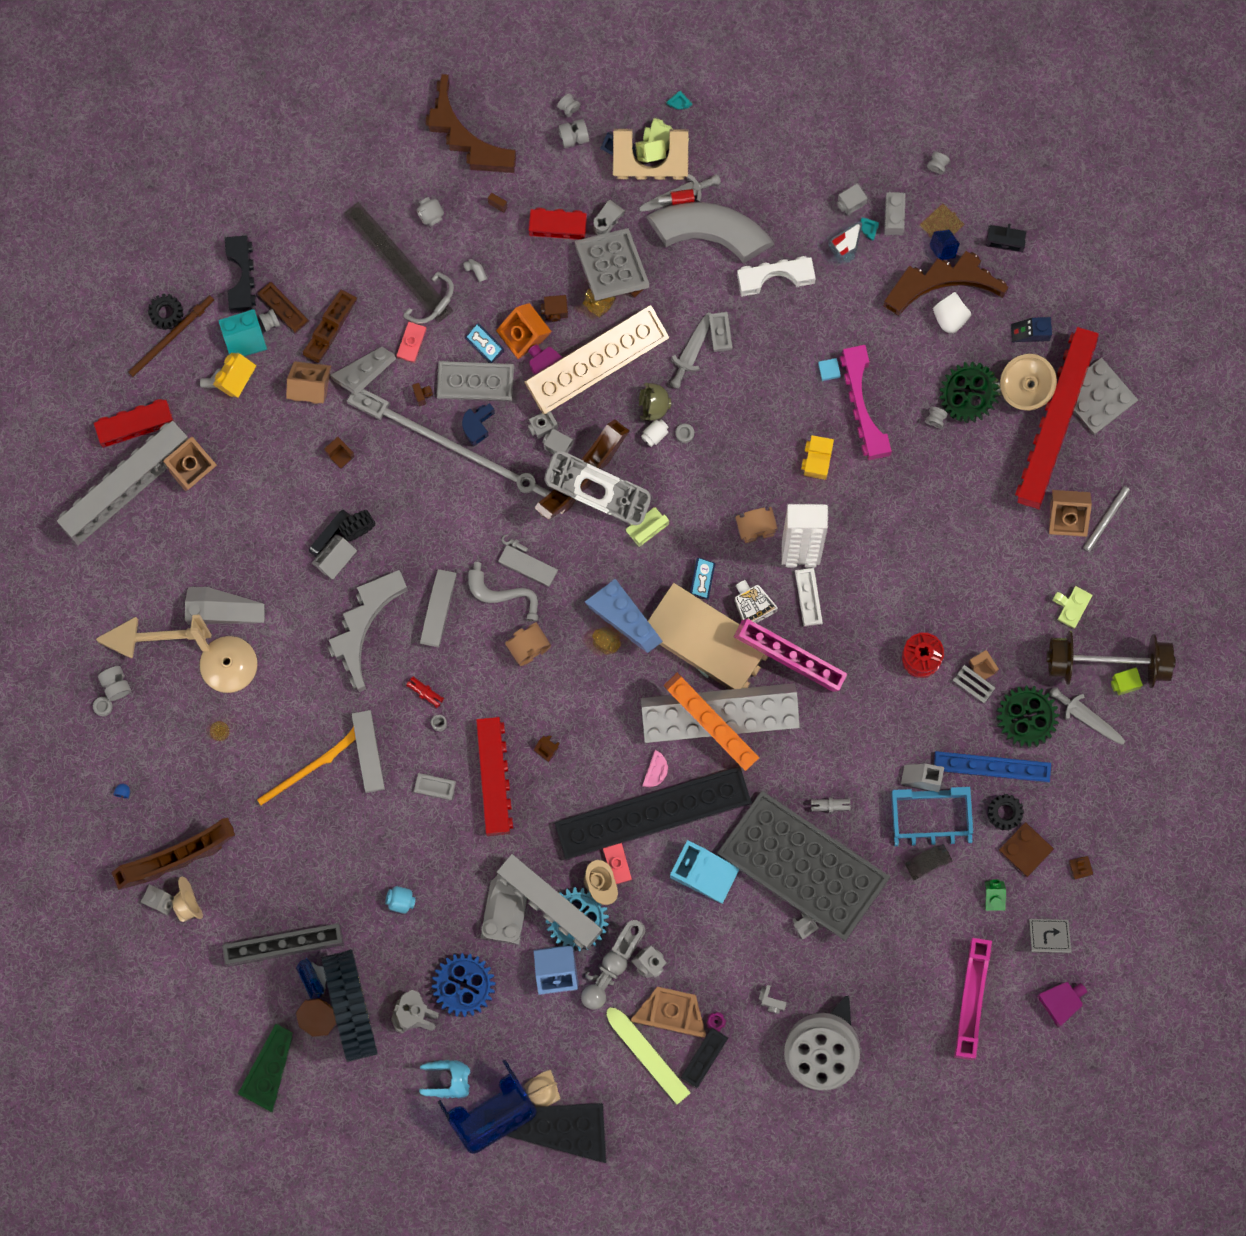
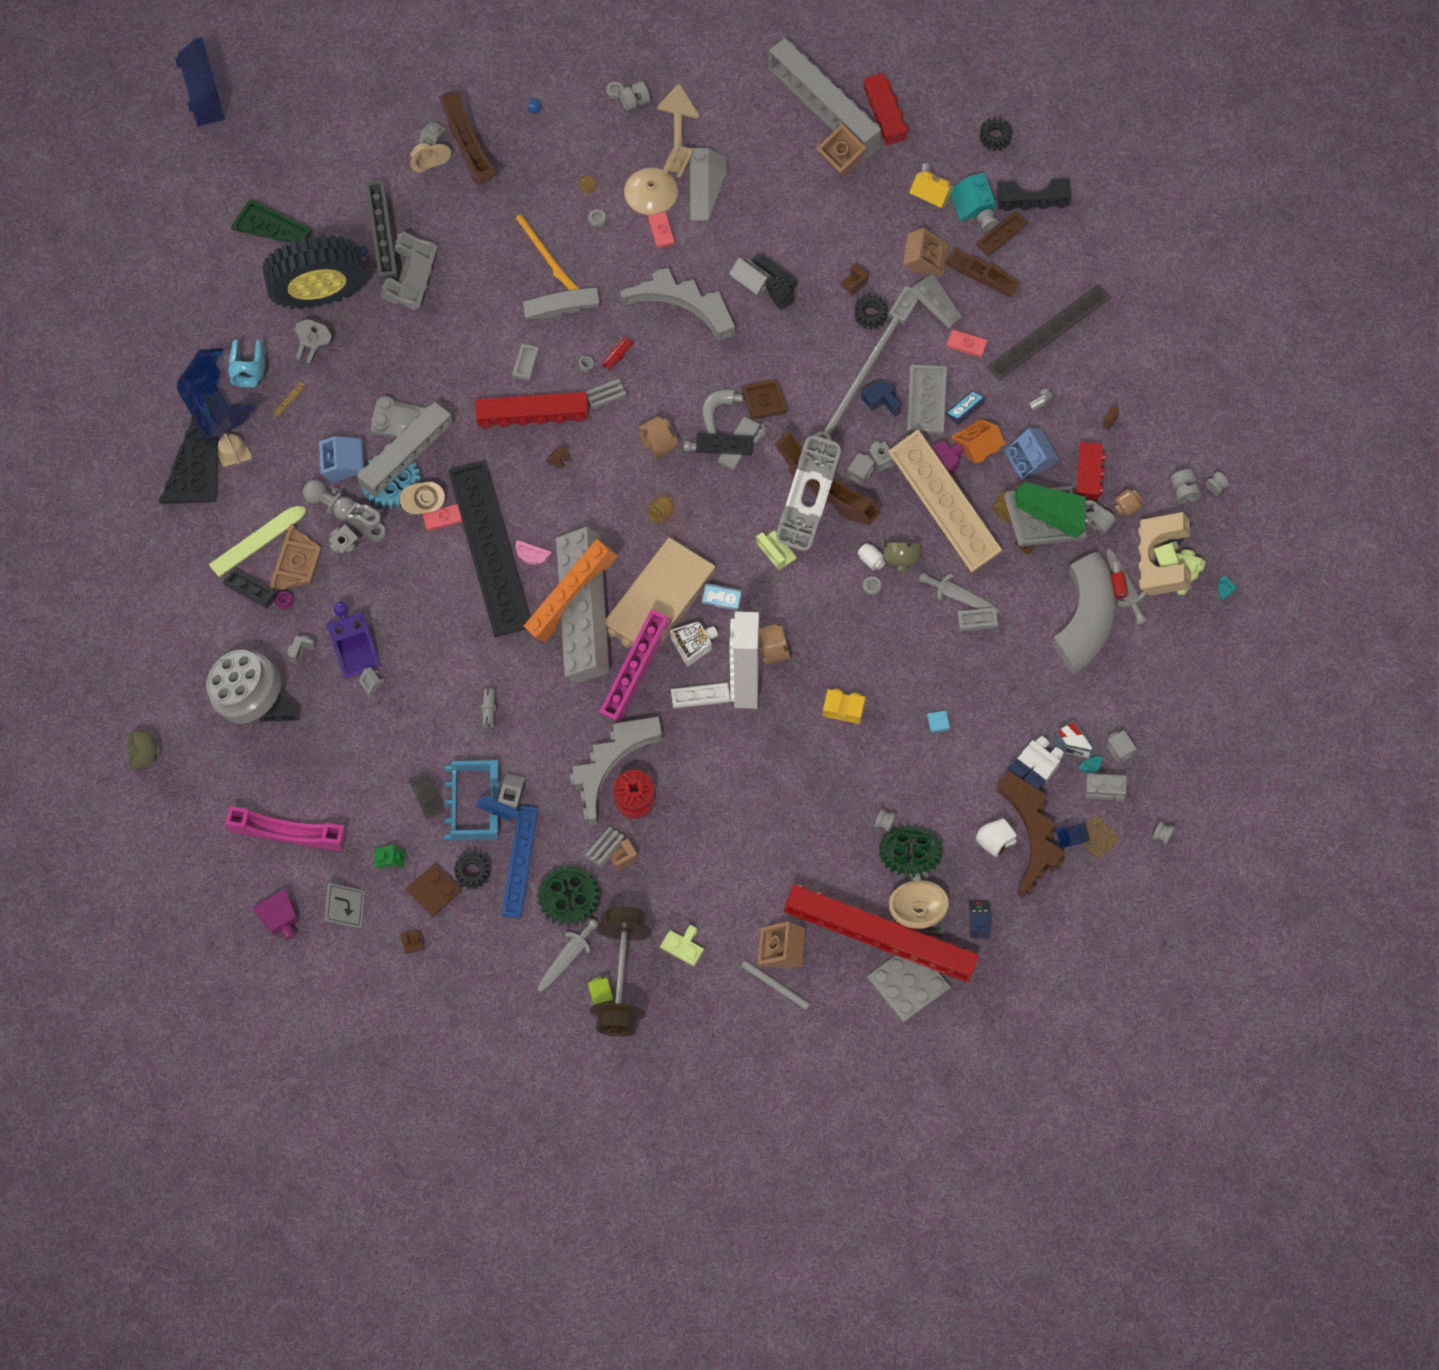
camera: 90 degrees right, 10 degrees down
(93, 1156) = (200, 83): none -> clear blue windscreen
(198, 310) = (997, 161): reddish brown bar -> none
(261, 719) = (597, 218): none -> light grey tile
(276, 652) = (661, 230): none -> coral plate
(332, 907) = (414, 273): none -> light grey bracket
(376, 425) = (867, 321): none -> black tyre
(400, 899) = (418, 330): medium azure head -> none
(421, 394) = (912, 349): reddish brown tile -> none
(430, 211) = (1100, 358): light grey head -> none
(438, 608) = (696, 362): light grey slope -> none
(440, 307) = (1007, 369): light grey piece -> none
(455, 1000) = (320, 376): blue gear -> none
(465, 688) = (604, 387): none -> light grey tile
(478, 541) = (764, 399): none -> reddish brown plate
(481, 1035) = (285, 401): none -> yellow piece
(482, 155) = (1178, 384): reddish brown arch -> none
(532, 579) = (724, 444): none -> black tile
(538, 279) = (1031, 453): none -> medium blue slope
(554, 308) = (1001, 468): reddish brown brick -> none
(591, 188) = (1128, 503): none -> medium nougat head
(608, 251) = (1053, 507): none -> green slope
(620, 611) = (682, 520): medium blue wedge -> none
(704, 872) = (428, 589): medium azure slope -> none
(762, 947) = (354, 645): none -> dark purple slope
(798, 271) = (1032, 649): white arch -> none
(804, 866) = (427, 677): dark grey plate -> none
(873, 278) = (1038, 762): none -> white hips
(875, 442) = (942, 744): dark pink arch -> none
(881, 686) = (624, 740): none -> light grey arch
(892, 1154) = (141, 750): none -> olive cylinder
(942, 795) = (497, 808): none -> blue tile
(1006, 238) = (1082, 898): black panel -> none

